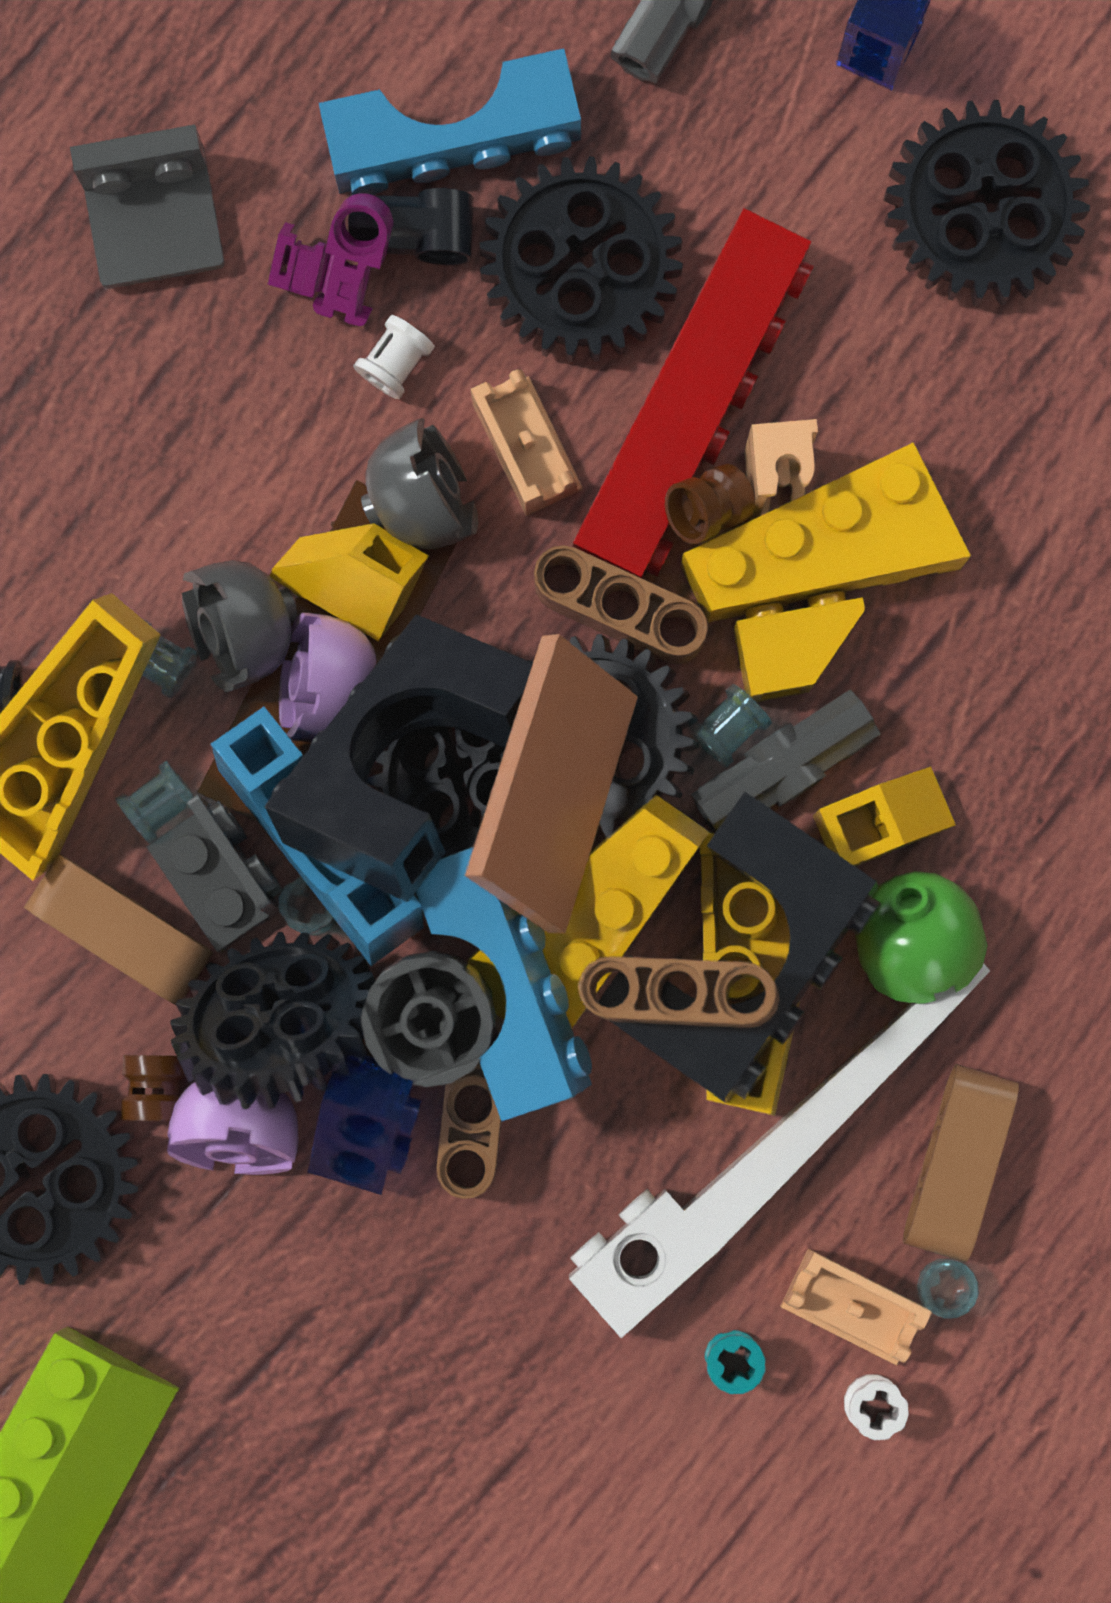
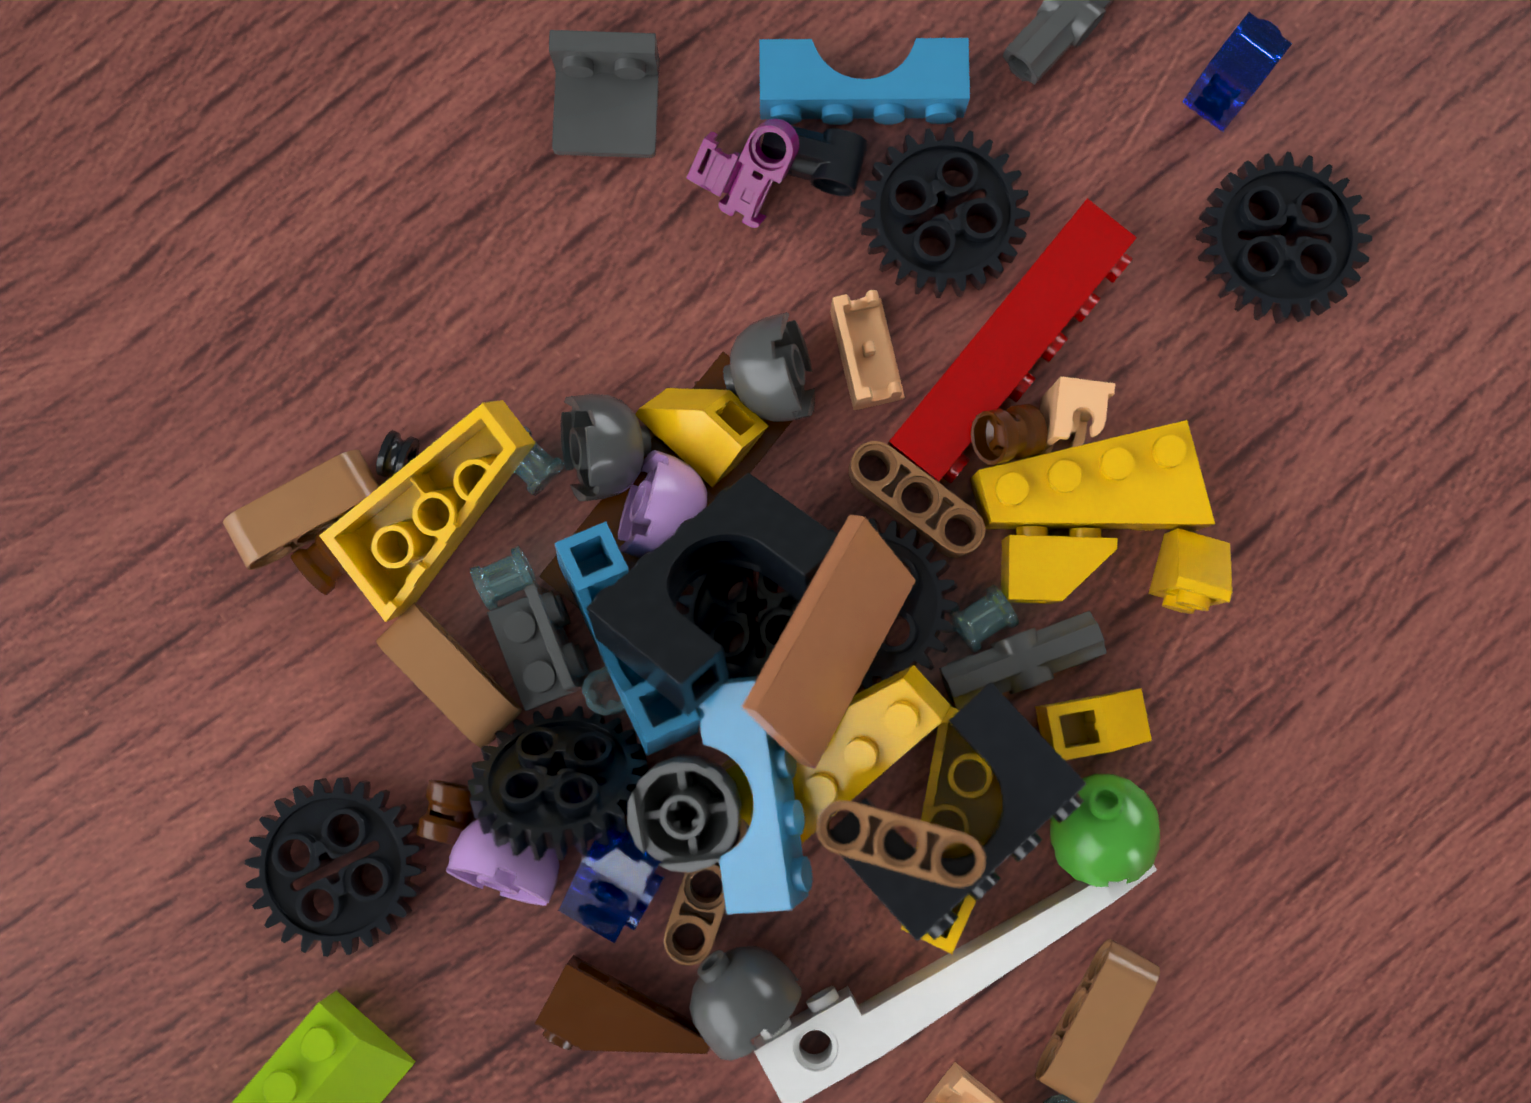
camera: 10 degrees right, 0 degrees up
(389, 1279) = (608, 1015): none -> reddish brown slope
(394, 357) = (775, 258): white bush -> none
(539, 1218) = (740, 997): none -> dark grey cylinder
(958, 618) = (1192, 572): none -> yellow slope

